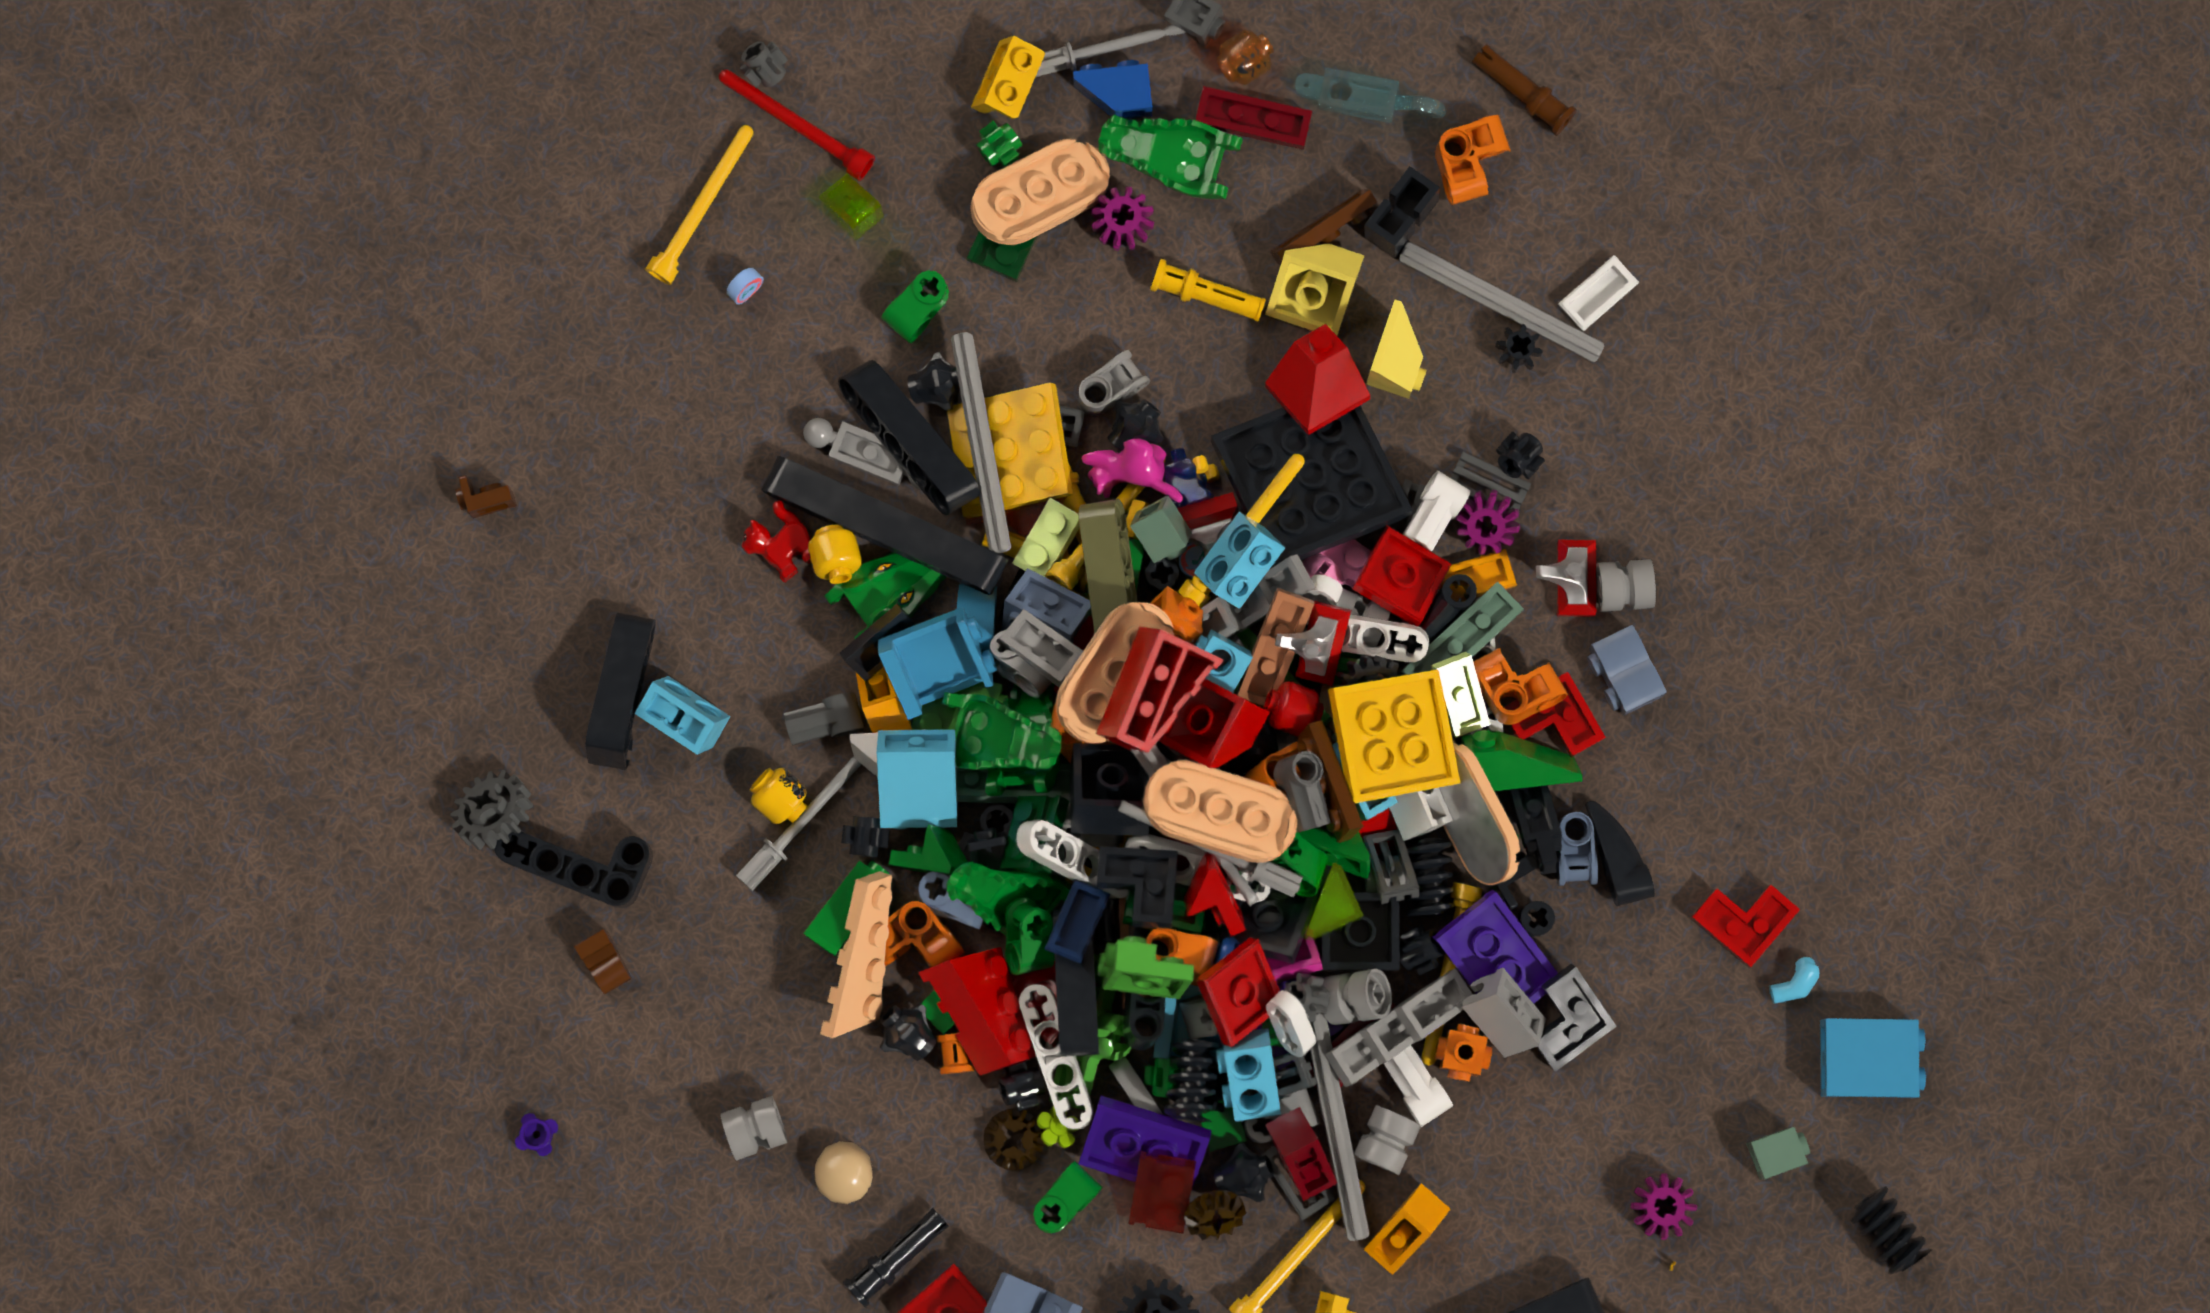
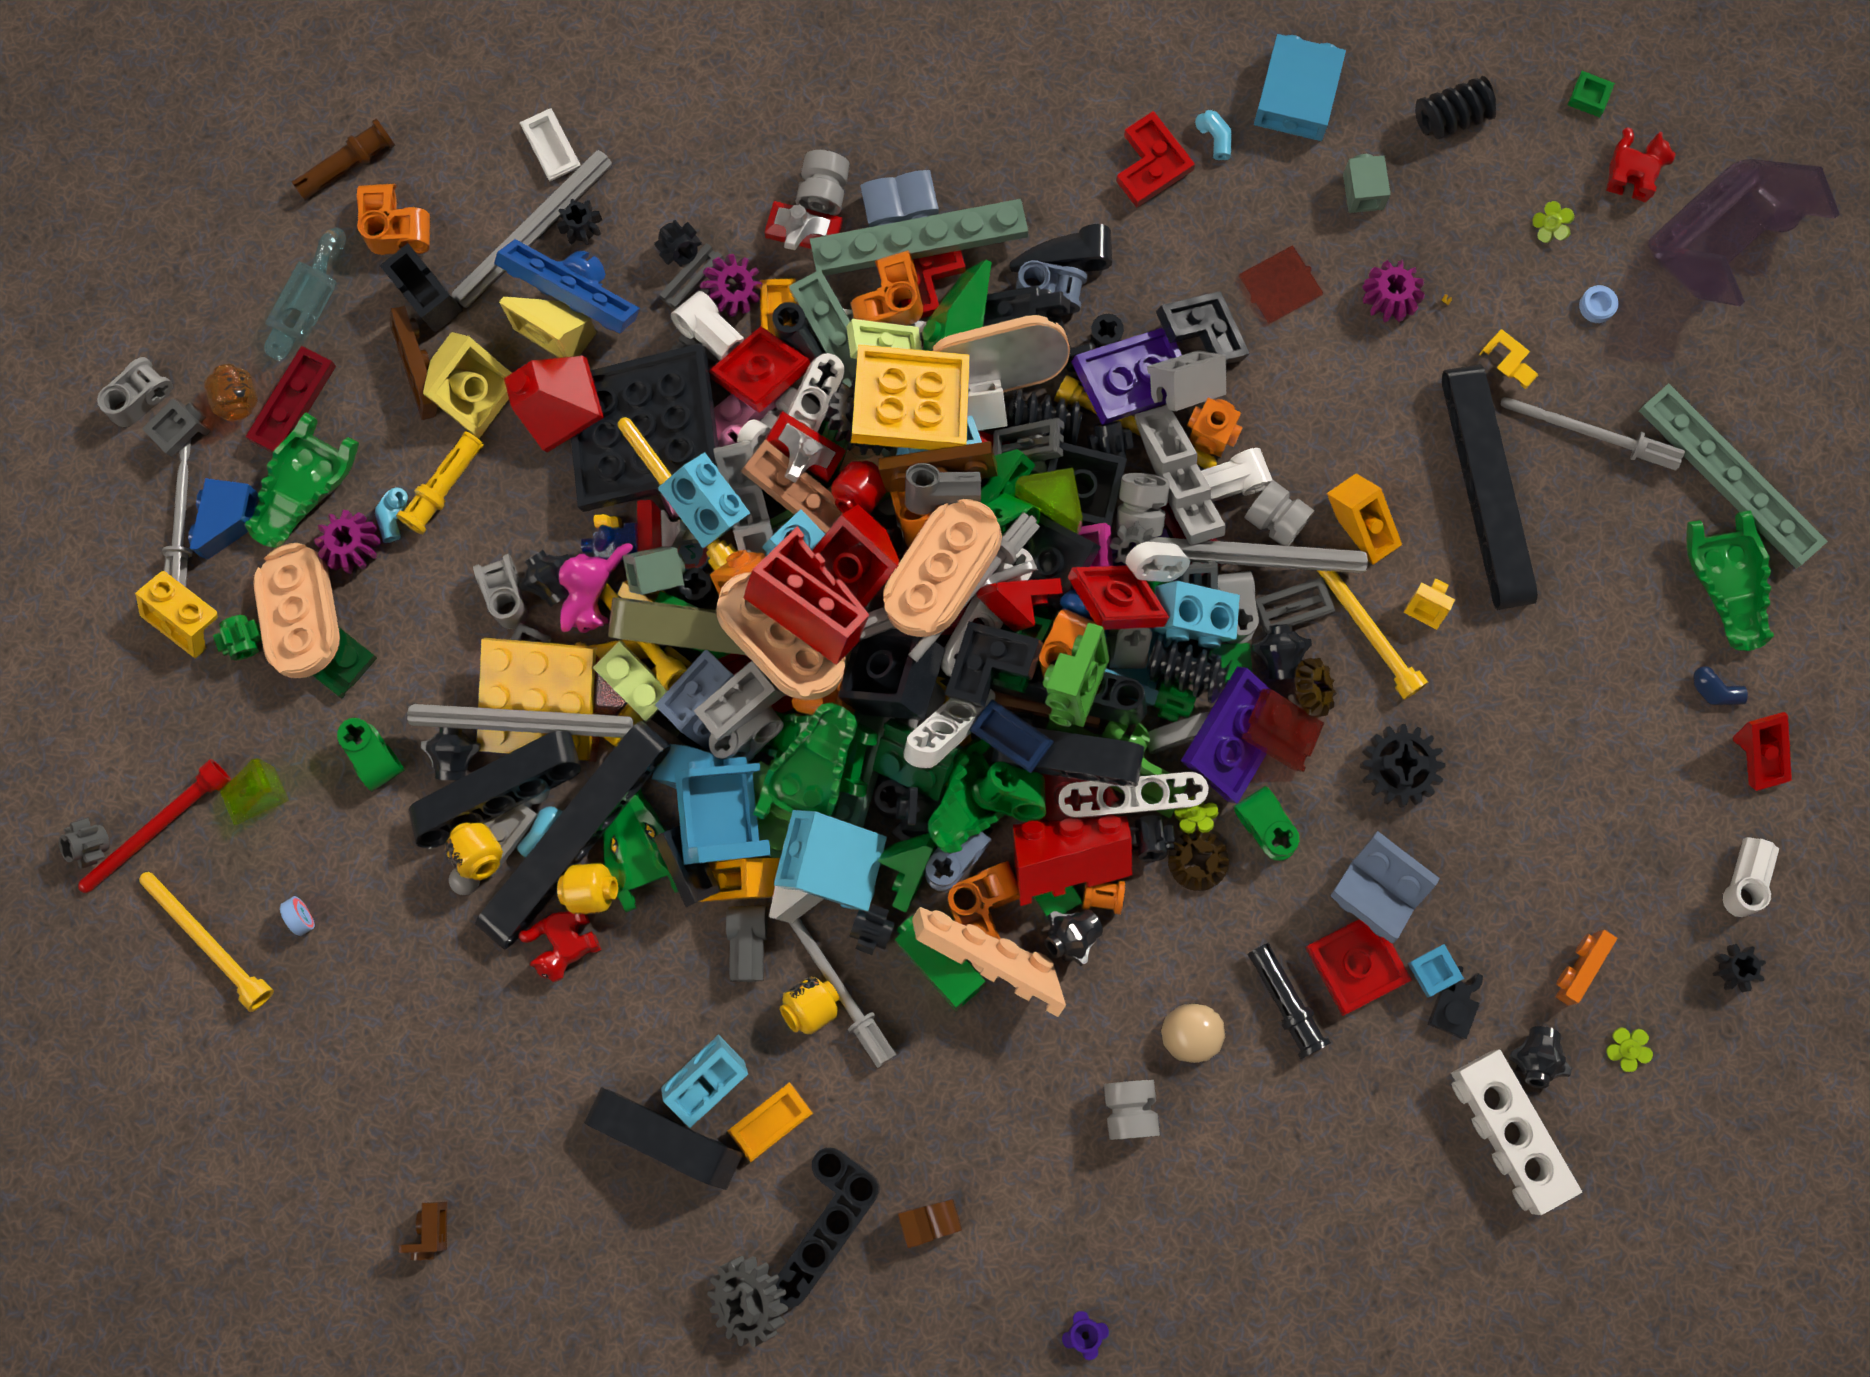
camera: 75 degrees left, 5 degrees down
(661, 787) = (770, 1122): none -> light orange tile
(844, 435) = (473, 851): none -> yellow head
(892, 494) = (541, 825): none -> medium azure arm
(1163, 247) = (386, 512): none -> medium azure arm
(1301, 1153) = (1279, 586): dark red brick -> none
(1443, 360) = (570, 281): none -> blue plate
(1589, 700) = (920, 236): none -> sand green plate
(1645, 1088) = (1280, 284): none -> clear red piece

